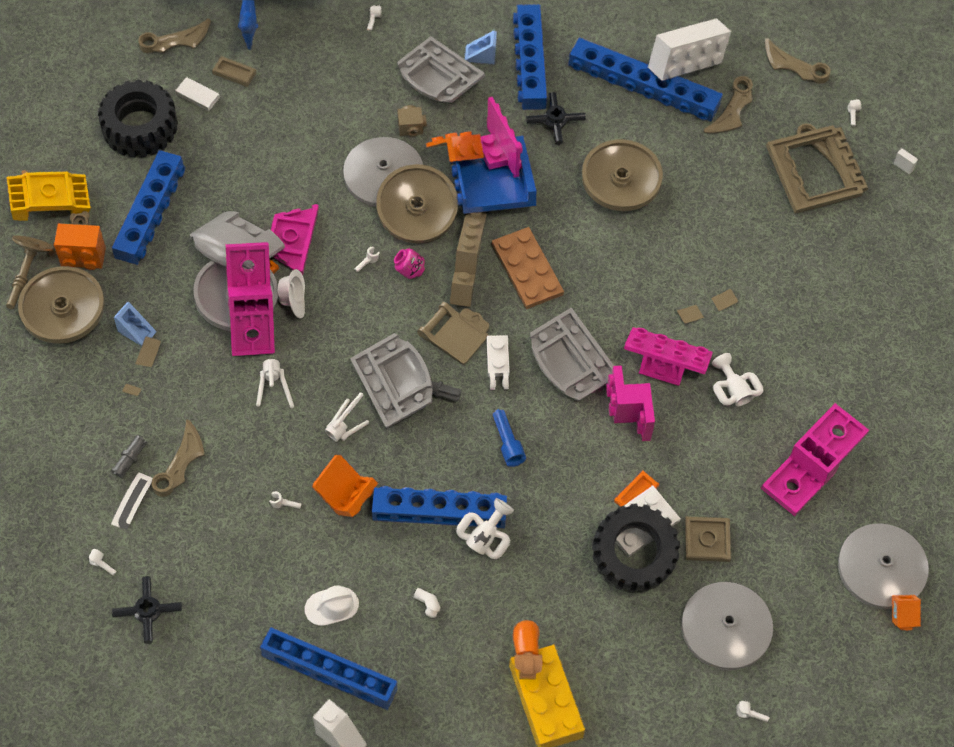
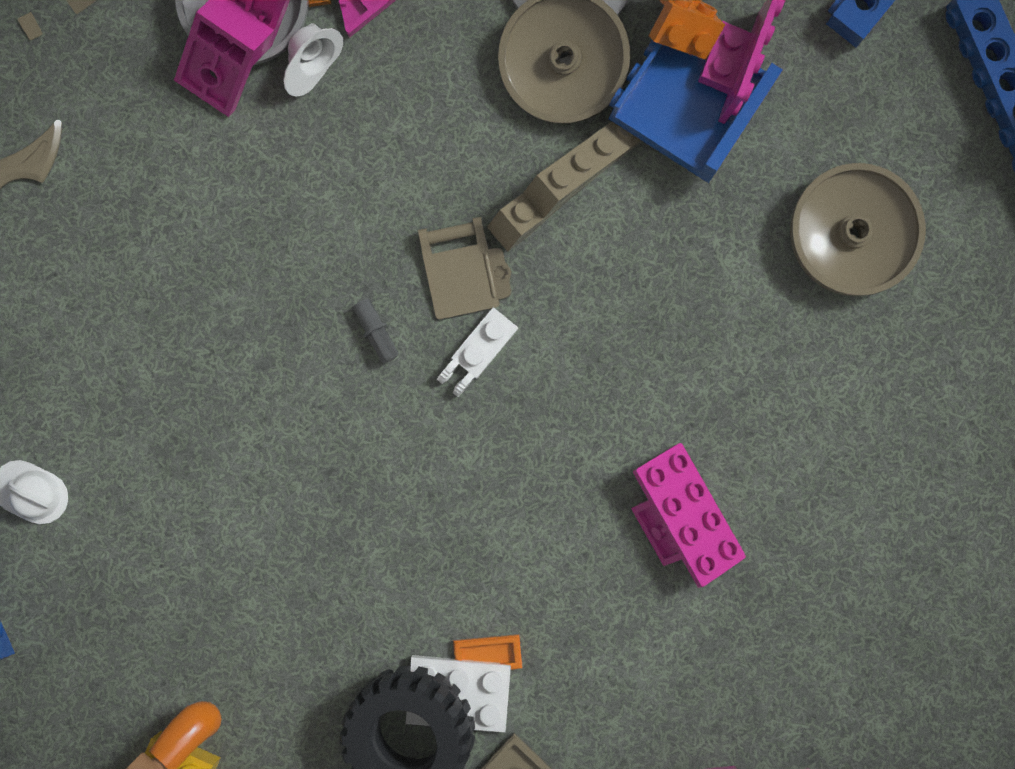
camera: 50 degrees right, 25 degrees up
(271, 372) = (200, 139): white plant -> none
(283, 502) = (79, 317): white hand -> none
(337, 428) = (215, 278): white plant -> none
(343, 487) = (153, 366): orange bracket -> none
(369, 259) = (444, 81): white hand -> none
(394, 378) = (328, 275): light grey slope -> none
(409, 263) = (483, 132): dark pink head -> none
(428, 513) = (177, 429): blue brick -> none
(430, 601) = (137, 584): white arm -> none
(486, 530) = (259, 560): white piece -> none
(511, 449) = (389, 481): blue piece -> none
(527, 268) = (627, 255): medium nougat plate -> none
(555, 118) = (862, 82): black bar -> none
(570, 356) = (565, 423): light grey slope -> none
(631, 403) = (574, 549): dark pink bracket -> none
(721, 301) = (821, 501): dark tan sticker -> none
(736, 385) = (729, 626): white piece -> none

